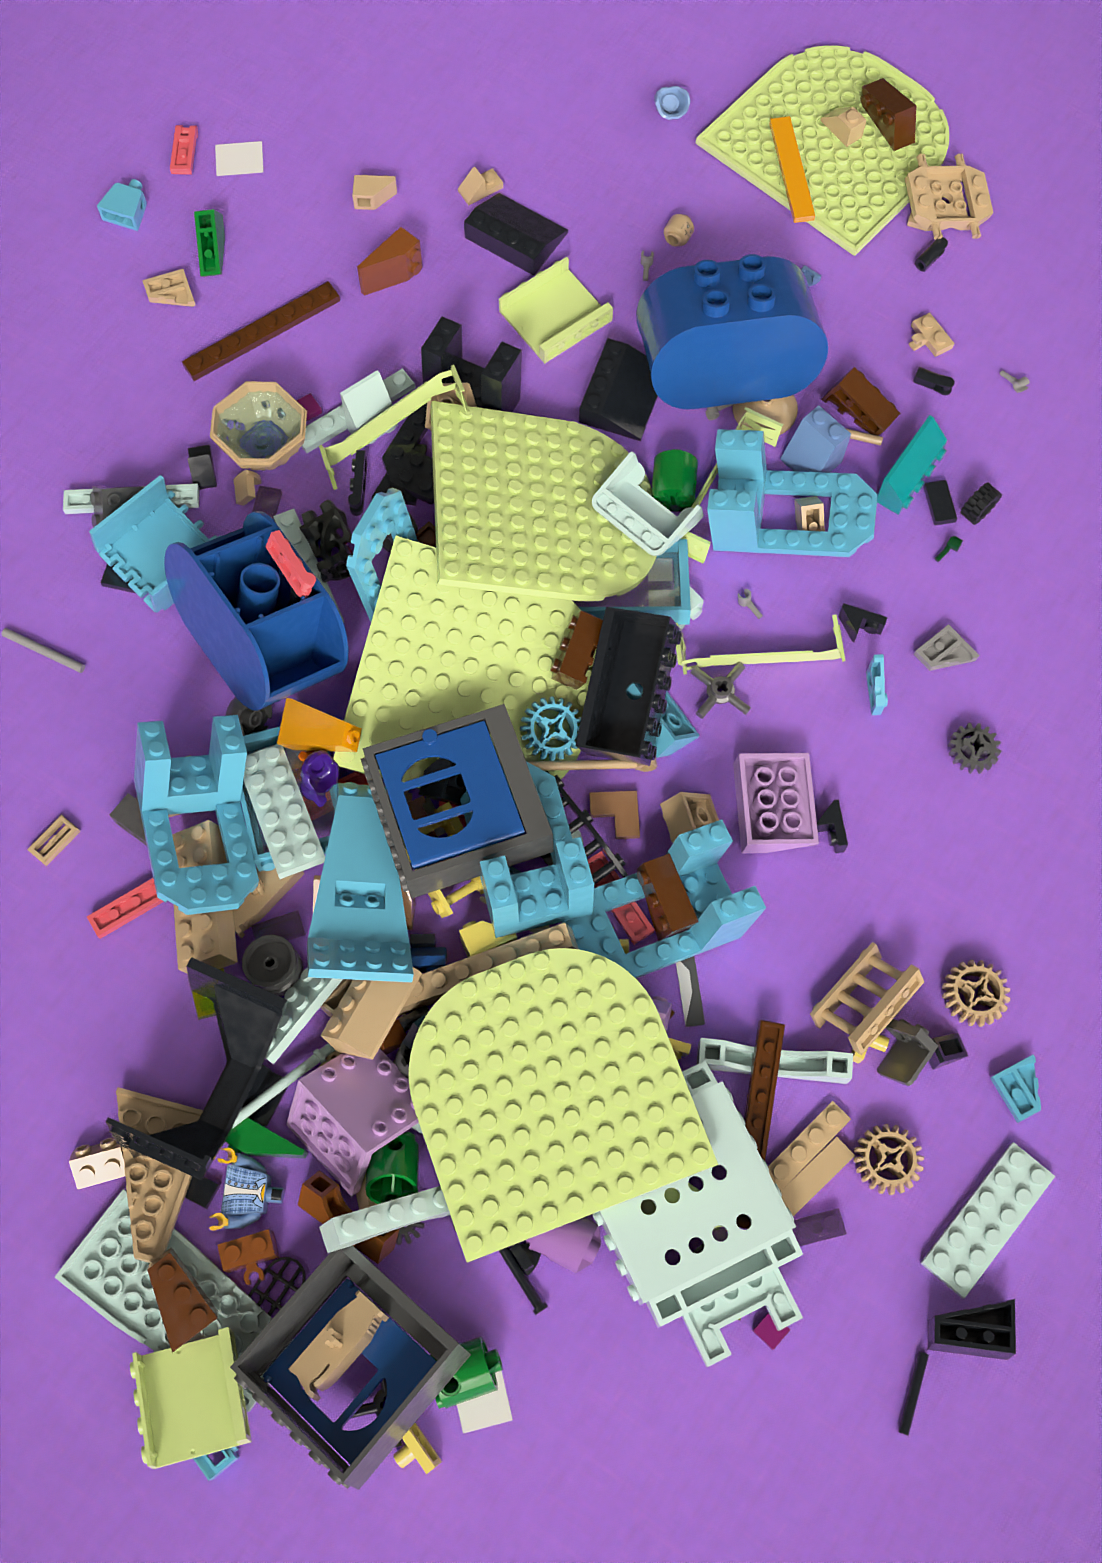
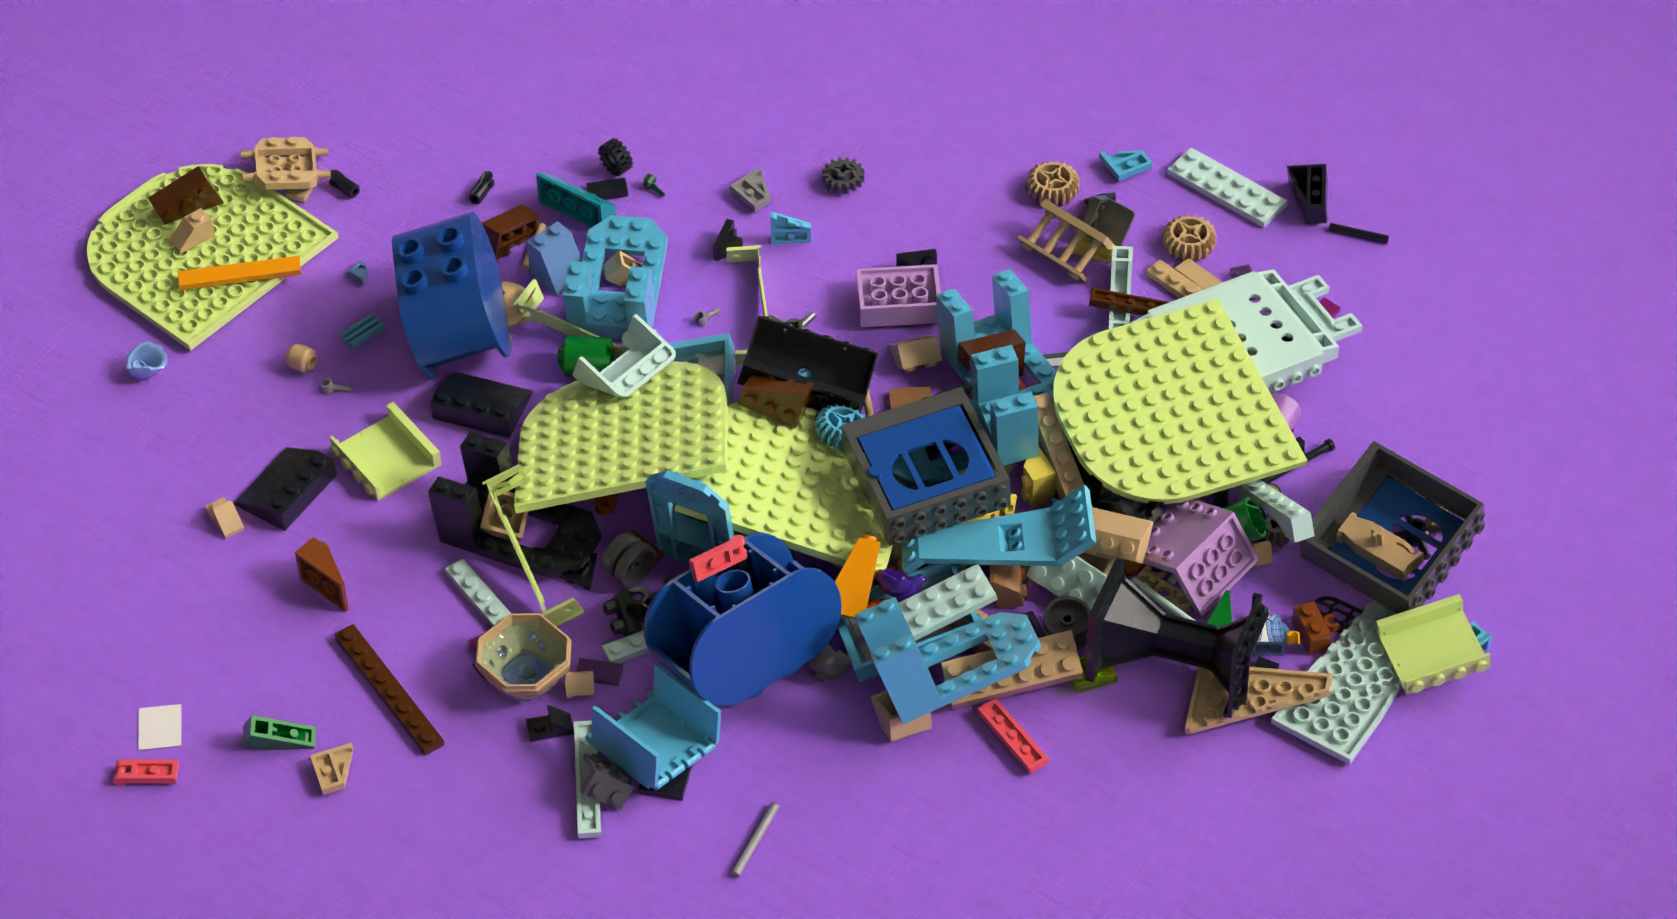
camera: 90 degrees left, 20 degrees down
(52, 849) = (951, 812): tan tile -> none
(97, 1163) = (1249, 741): bracket -> none
(124, 205) = (219, 816): medium azure torso -> none
(129, 818) = (933, 741): flat silver slope -> none
(180, 1299) = (1359, 653): reddish brown wedge -> none
(323, 1201) = (1266, 577): dark orange arch -> none
(358, 483) = (582, 593): black plate -> none
(365, 402) = (504, 581): light aqua slope -> none
(373, 191) = (224, 602): tan slope -> none
(930, 334) = (431, 188): tan plate -> none
(1019, 385) = (488, 133): light grey hand -> none

